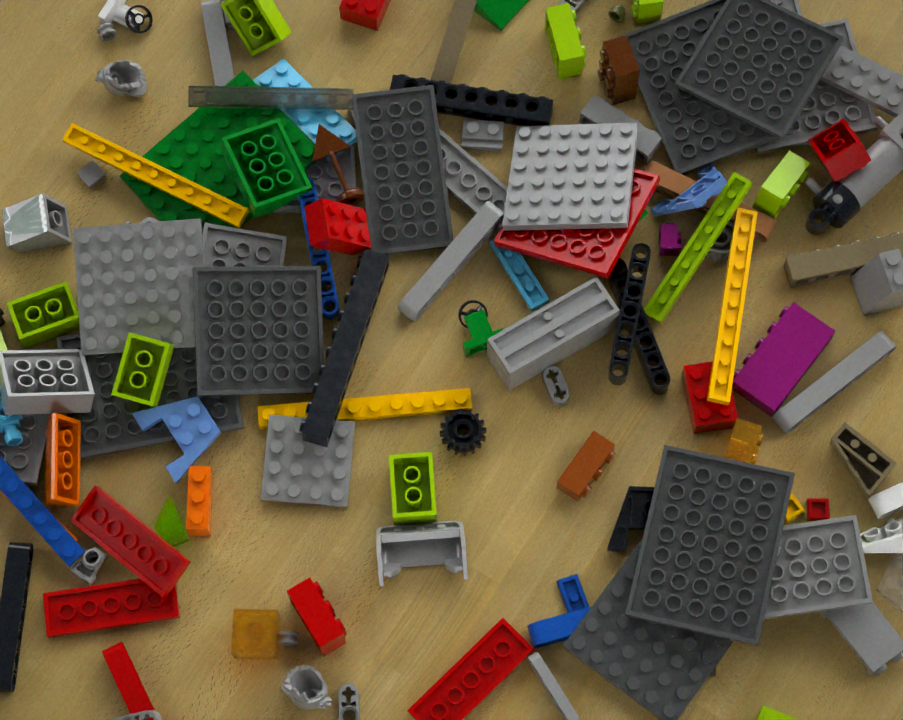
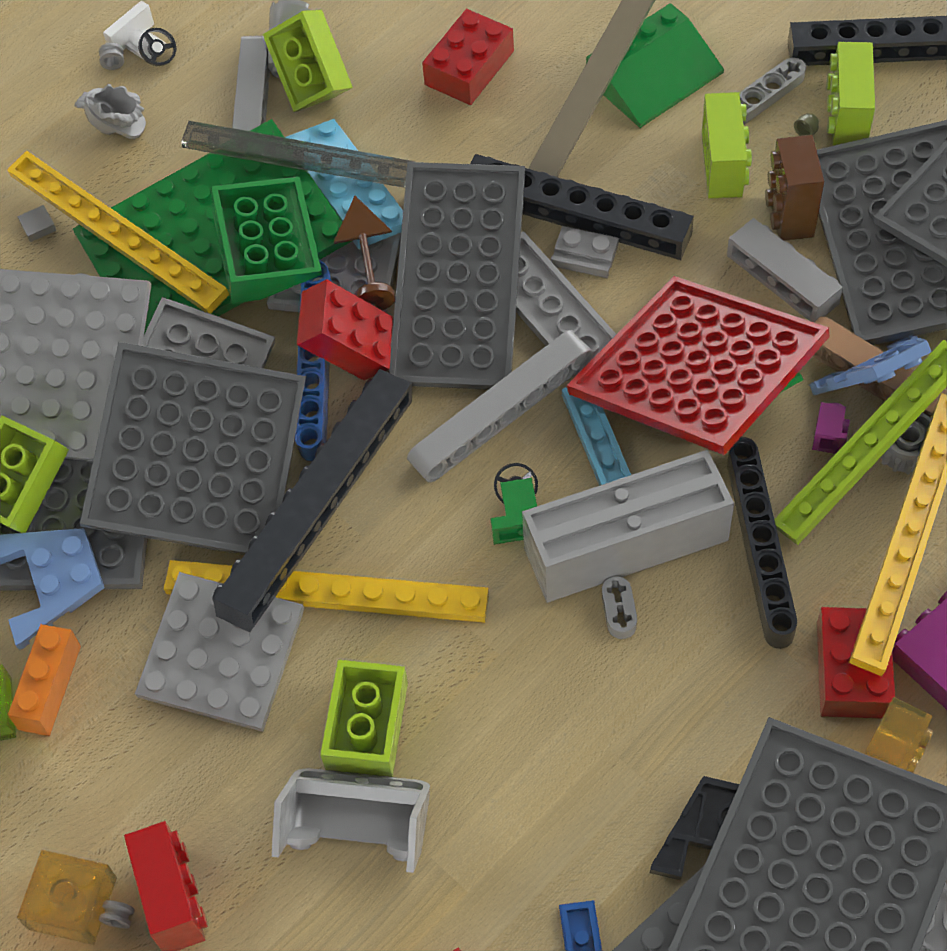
camera: 15 degrees right, 10 degrees down
(467, 421) = (462, 632): black gear -> none
(571, 177) = (699, 317): light grey plate -> none
(586, 466) = (641, 734): dark orange brick -> none
(629, 304) = (746, 529): black beam -> none

